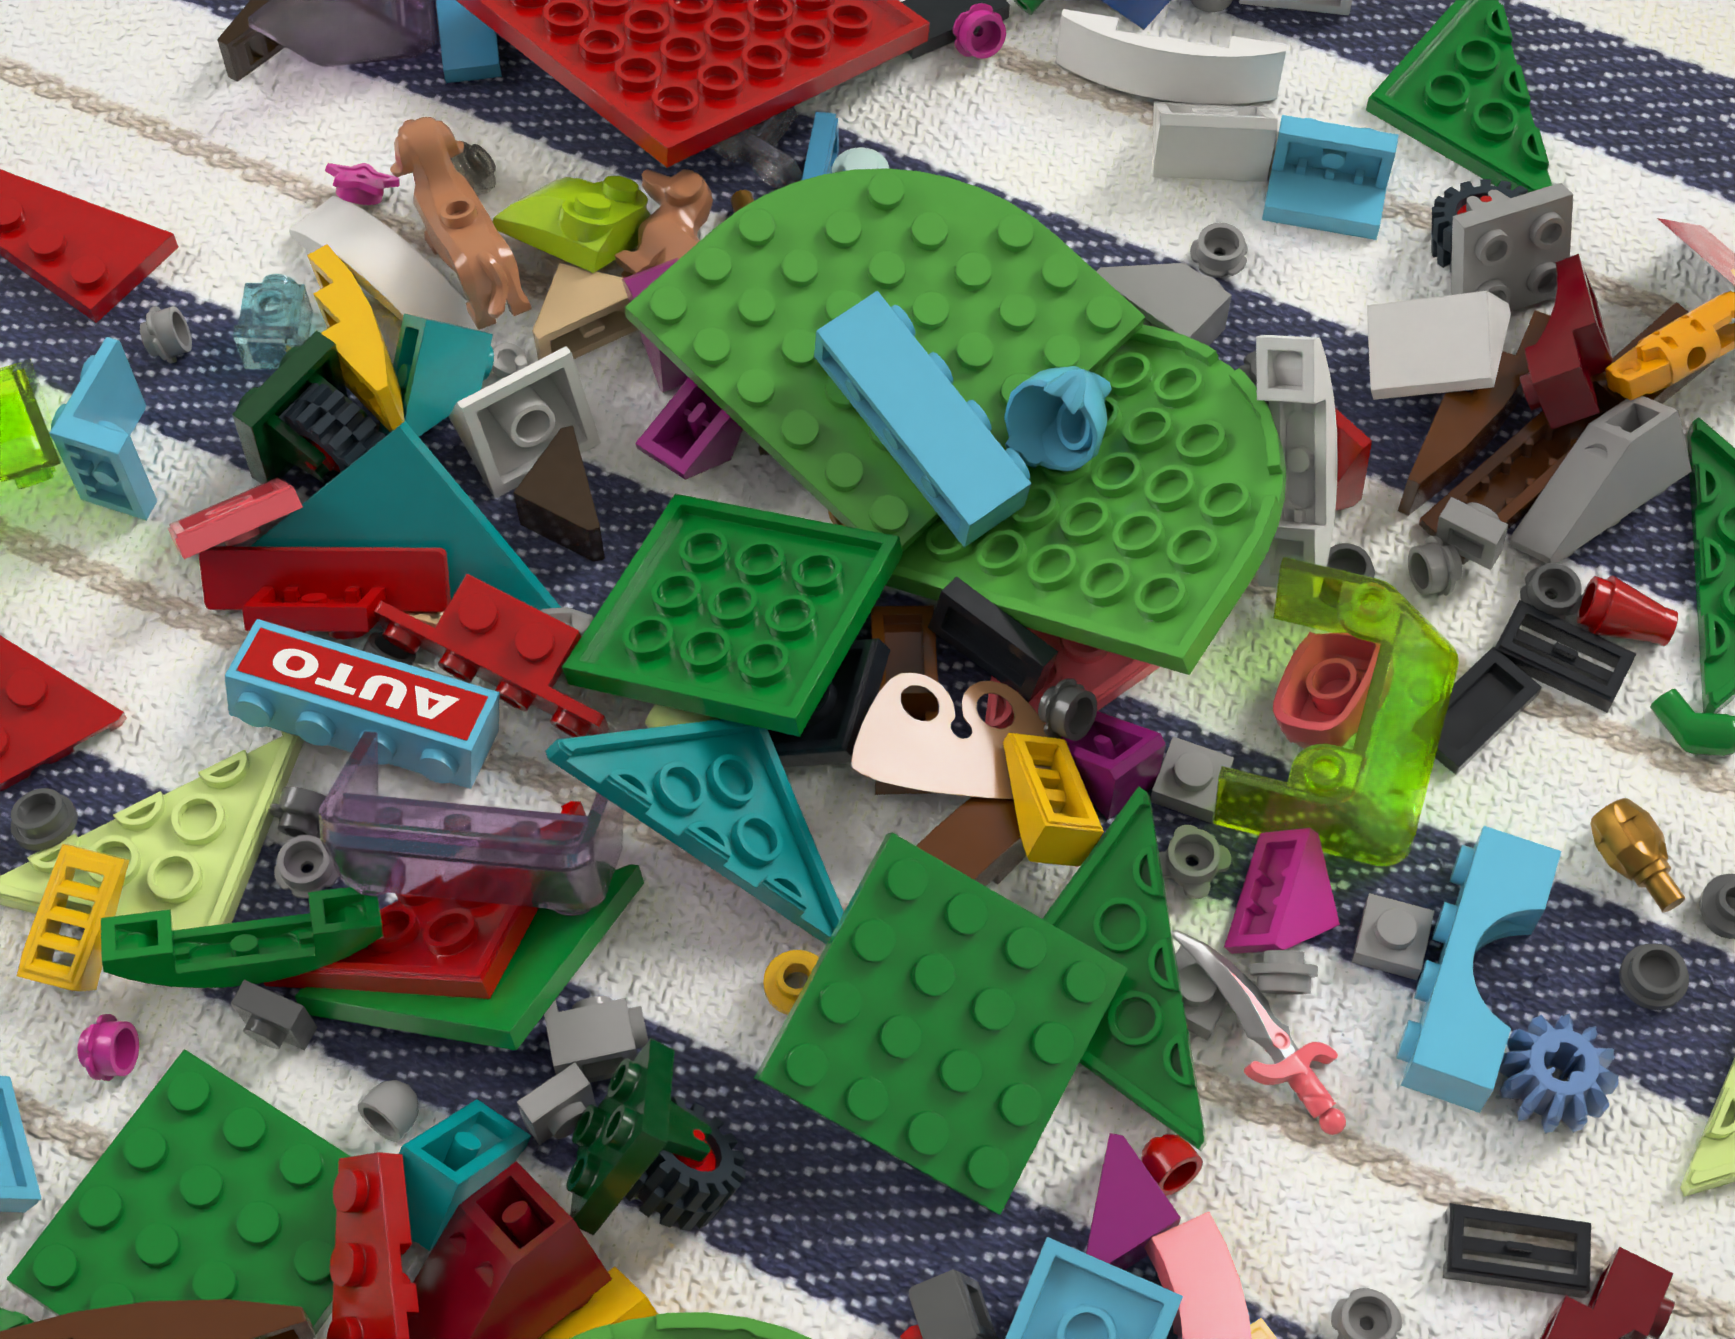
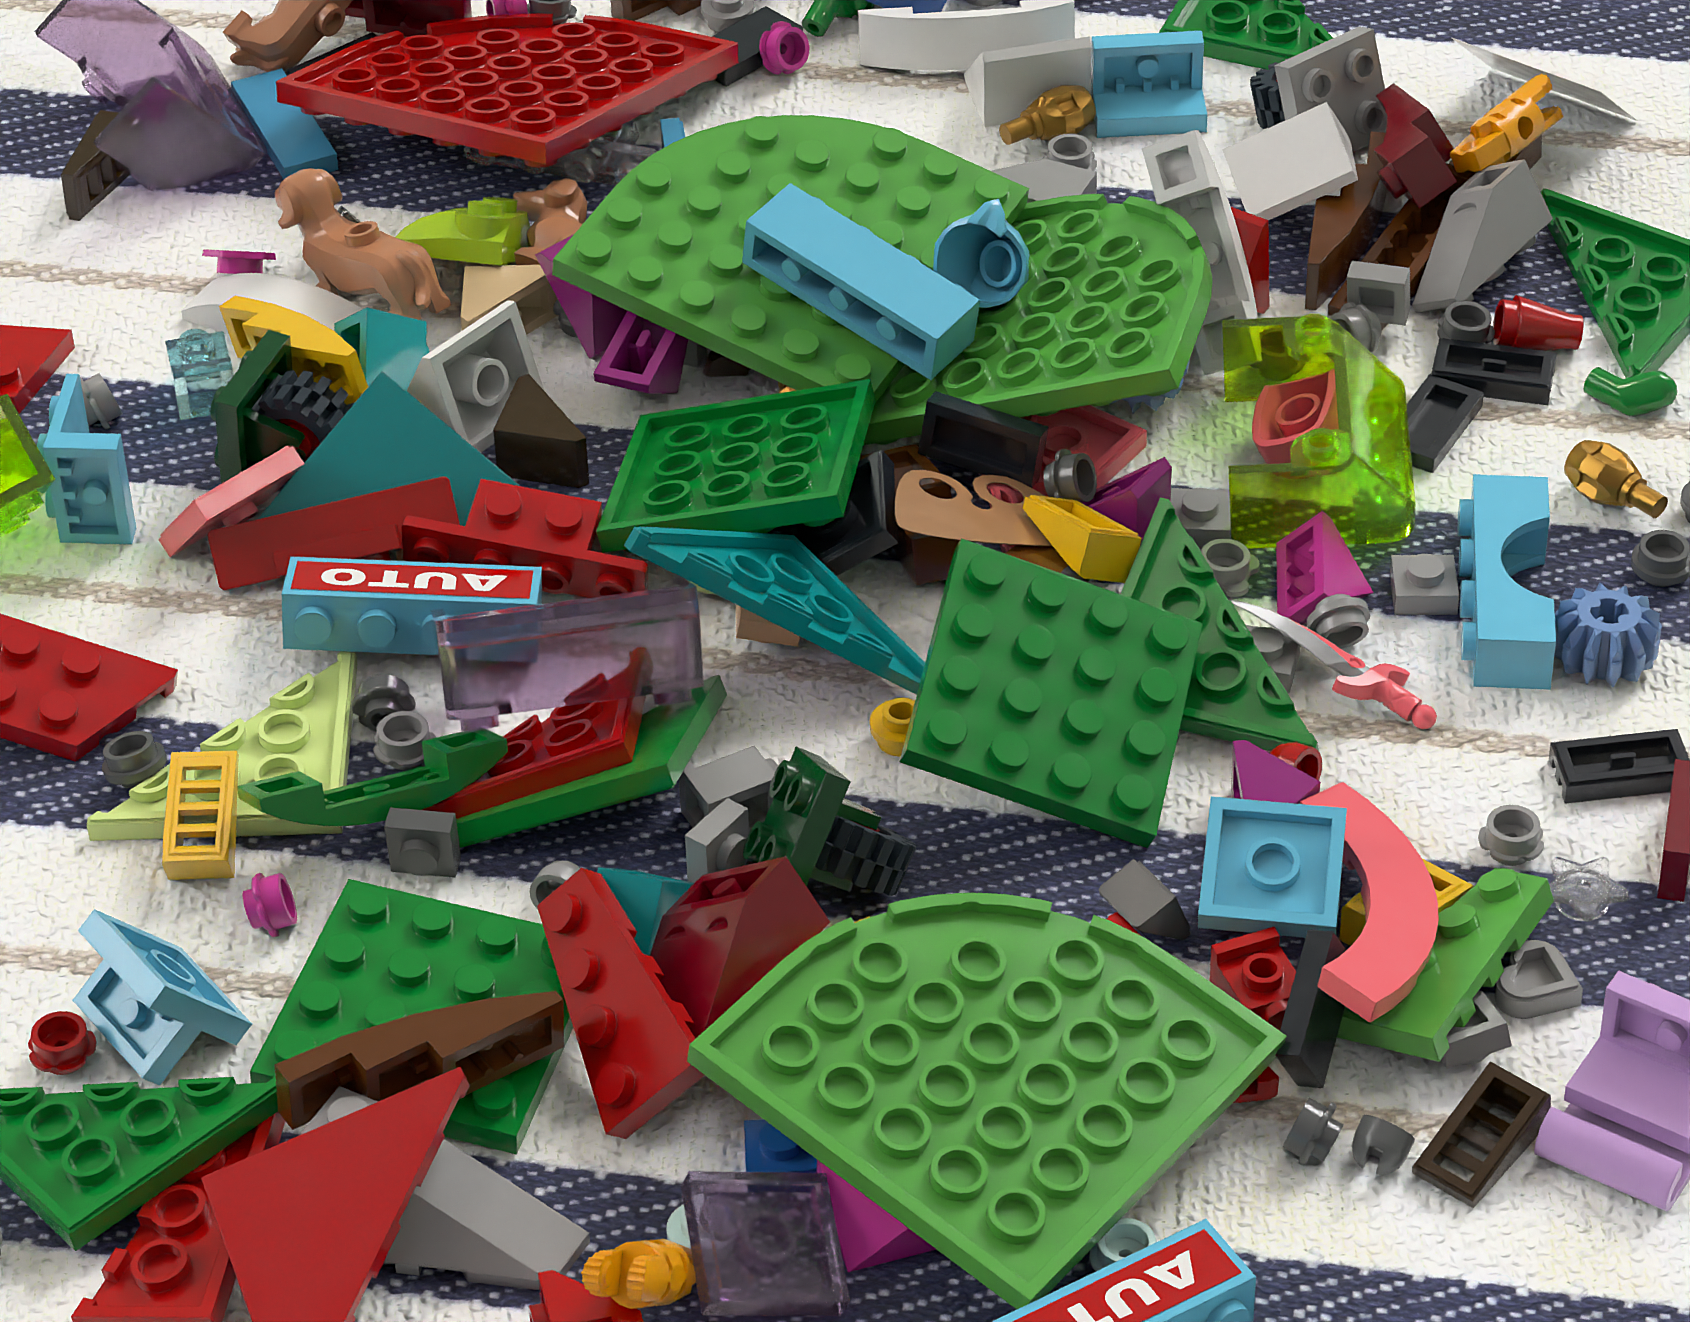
camera: 15 degrees left, 20 degrees down
(1218, 191) = (1054, 113): none -> pearl gold piece

